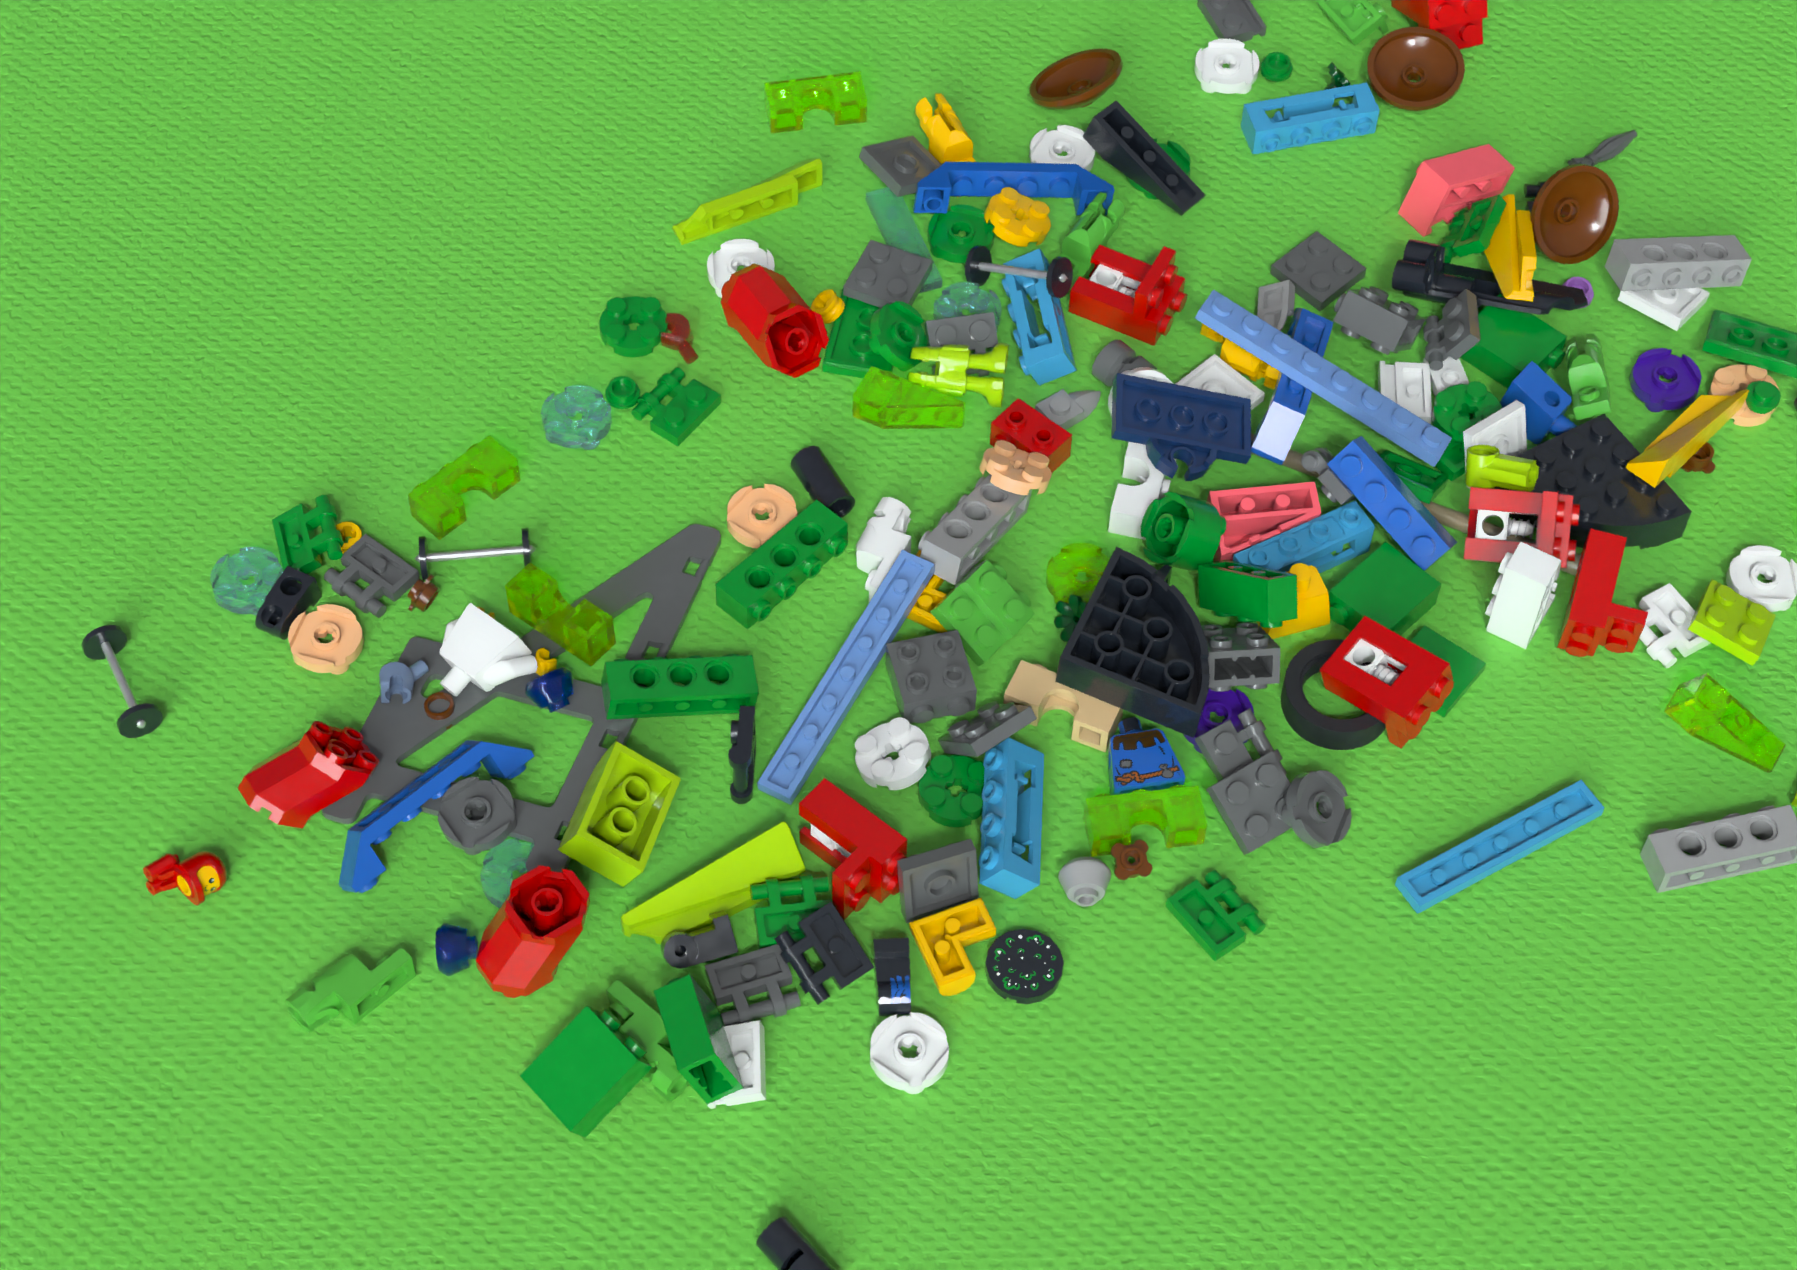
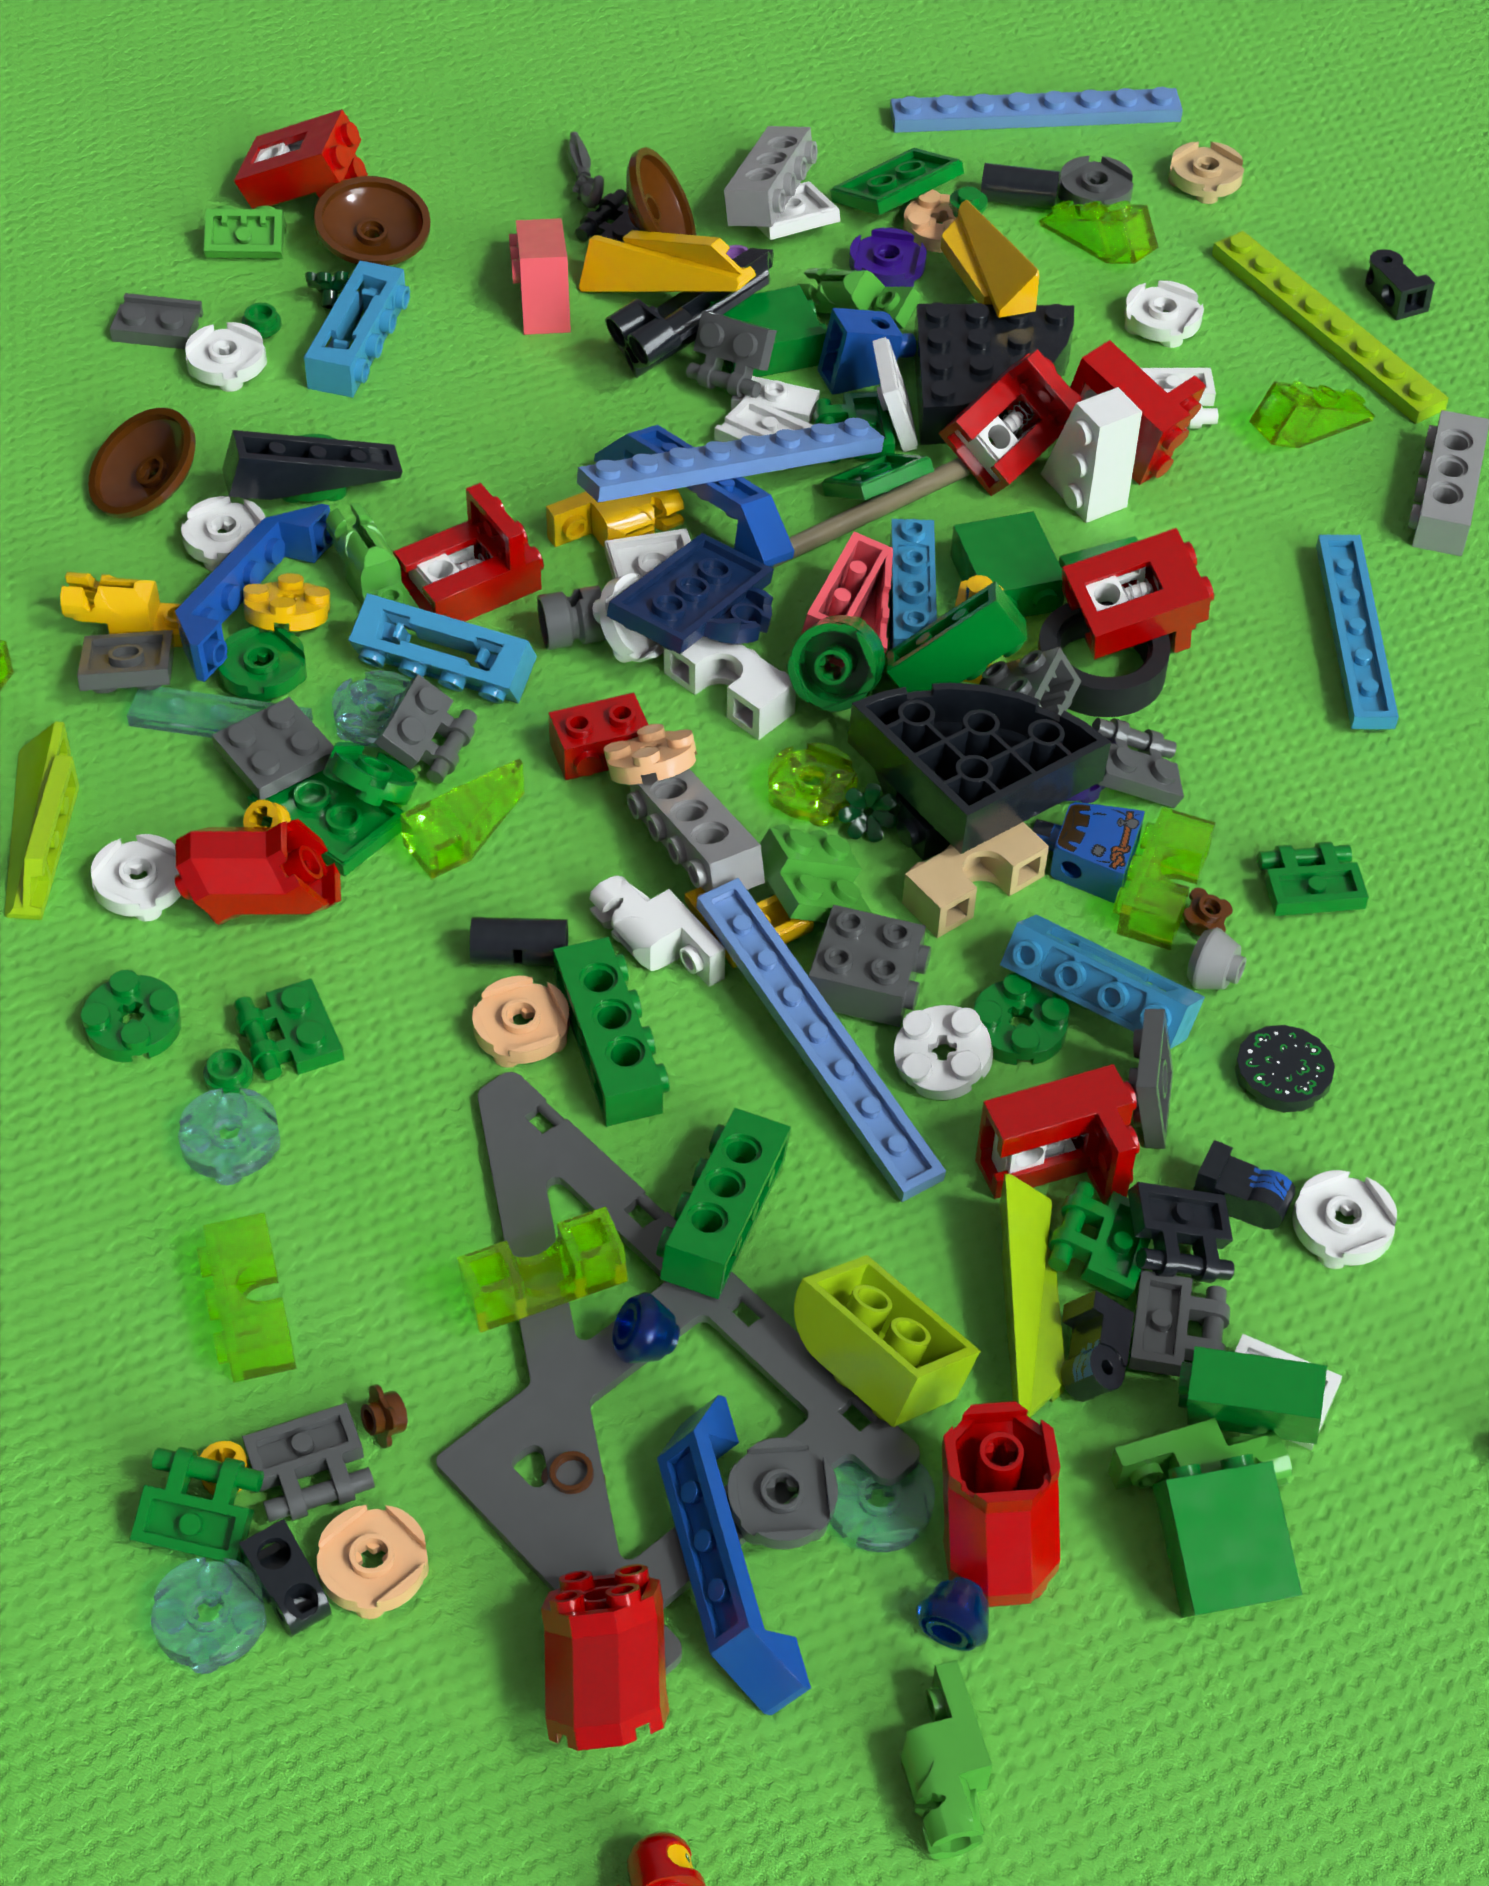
camera: 60 degrees left, 5 degrees down
(105, 643) = (190, 1836): axle -> none
(400, 679) = (511, 1497): sand blue piece -> none
(425, 557) = (398, 1272): axle -> none
(487, 653) = (539, 1376): white torso -> none
(680, 338) = (191, 971): clear red piece -> none
(743, 755) = (856, 1173): black plate -> none
(943, 940) = (1219, 1116): yellow brick -> none
(952, 368) = (456, 745): lime piece -> none
(987, 729) = (976, 946): dark grey plate -> none
(1058, 277) = (429, 592): black axle -> none
(1069, 408) = (571, 686): light grey plate -> none
(1253, 802) = (1201, 777): dark grey plate -> none
(1276, 303) = (566, 460): light grey plate -> none
(1302, 813) = (1246, 735): dark grey plate -> none
(1318, 270) = (553, 421): dark grey plate -> none
(1332, 486) = (859, 518): dark grey plate -> none
(1373, 316) = (688, 393): dark grey brick -> none
(1391, 503) = (918, 491): brick -> none
(1462, 398) = (824, 382): green plate -> none
(1473, 228) = (614, 274): green plate -> none
(1490, 469) = (935, 400): lime piece -> none
(1732, 622) = (1204, 350): lime plate -> none

